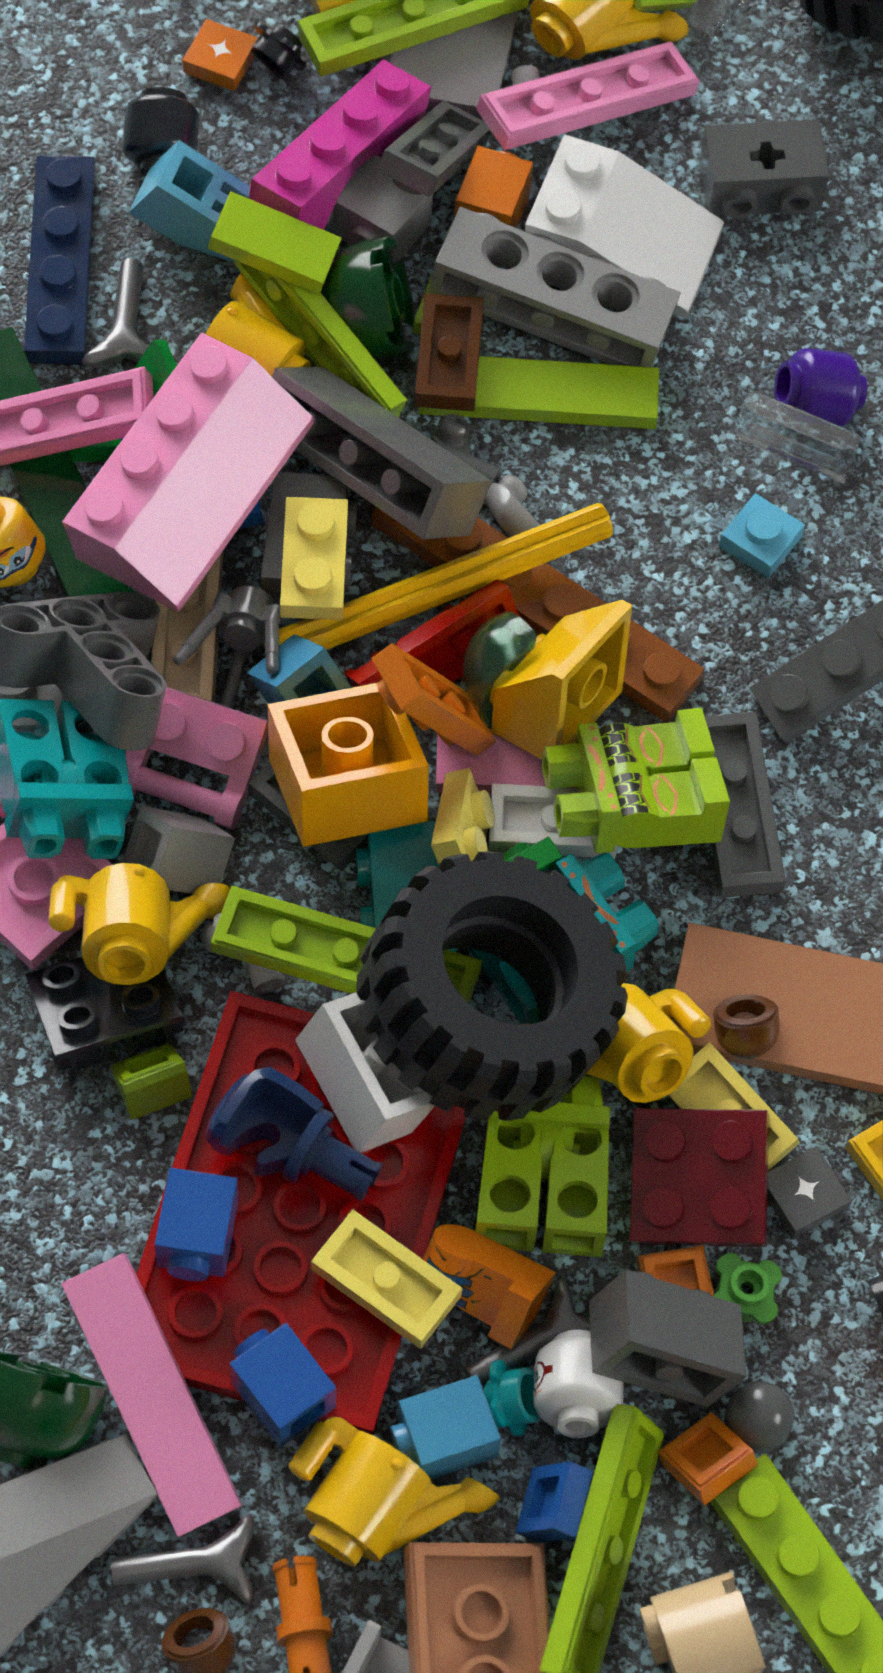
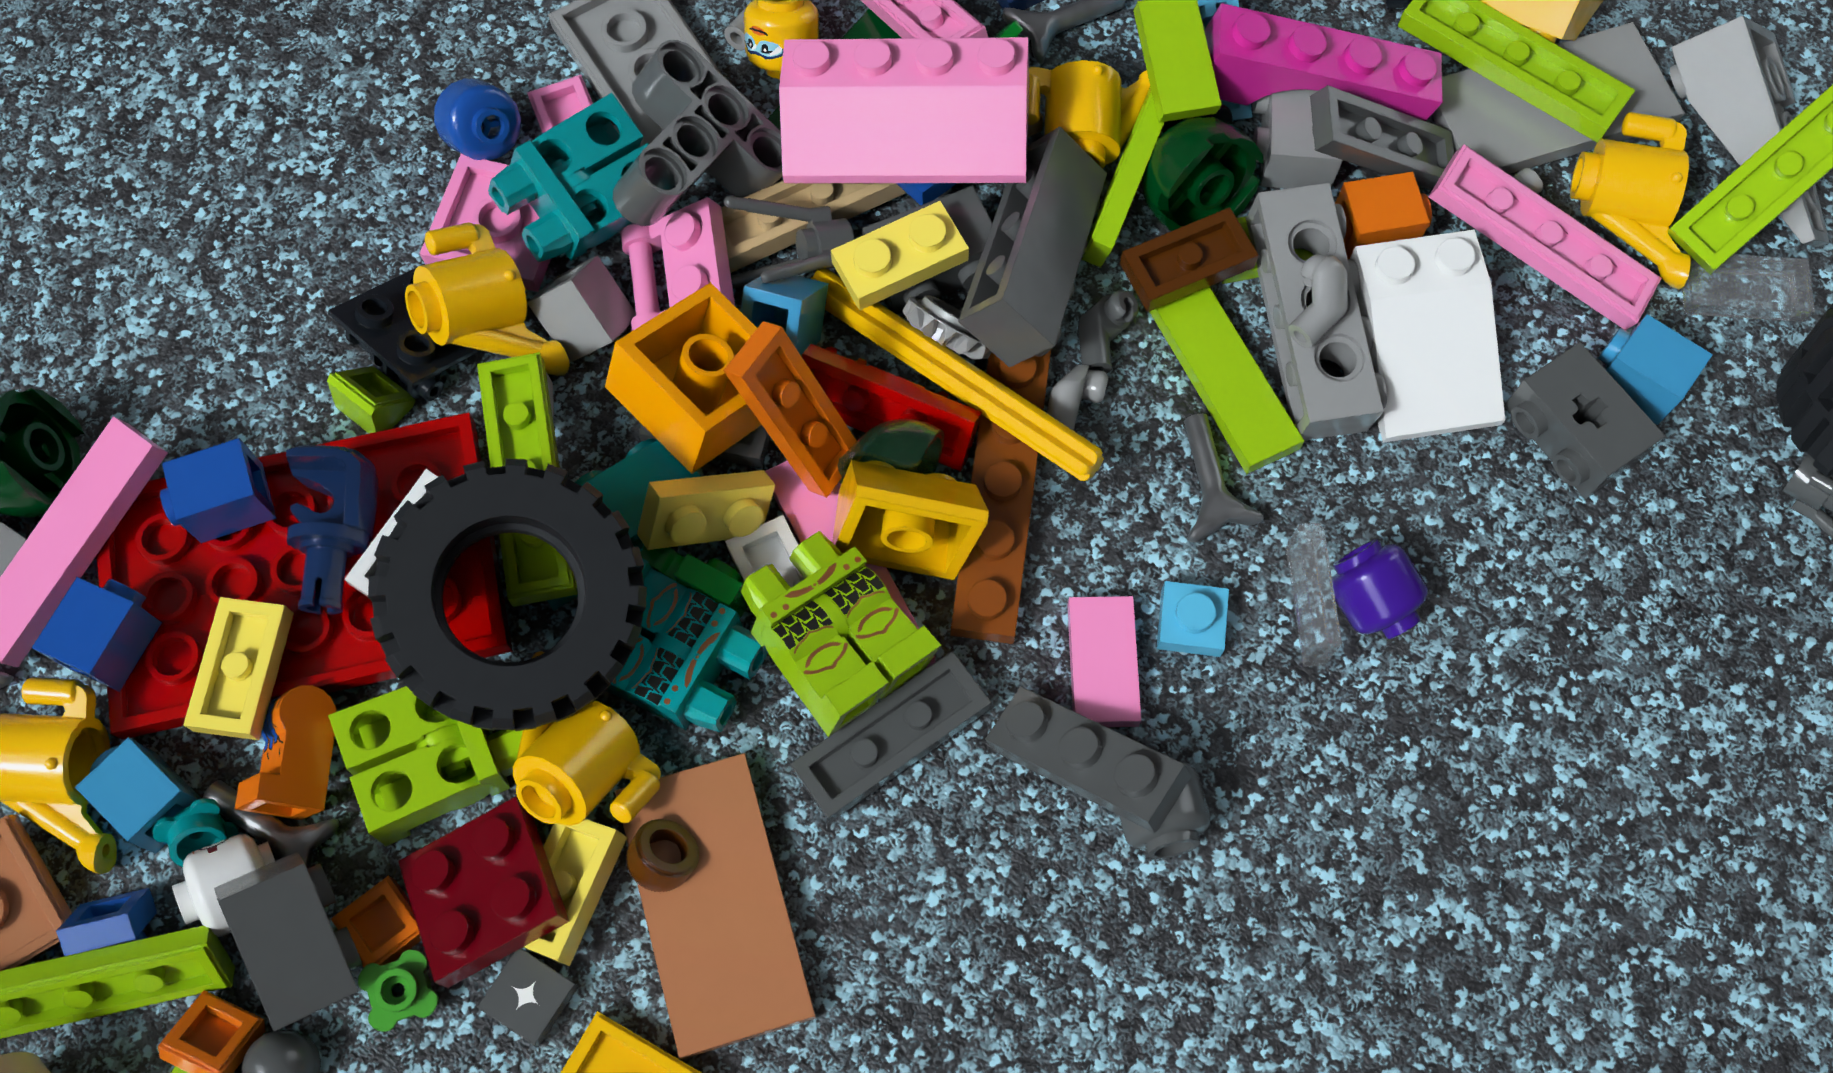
camera: 65 degrees right, 5 degrees up
(397, 562) = (940, 322): none -> light grey gear
(570, 268) = (1329, 299): none -> light grey arm
(673, 461) = (1217, 502): none -> flat silver piece
(748, 90) = (1654, 365): none -> dark azure brick
(758, 617) = (1104, 660): none -> bright pink tile

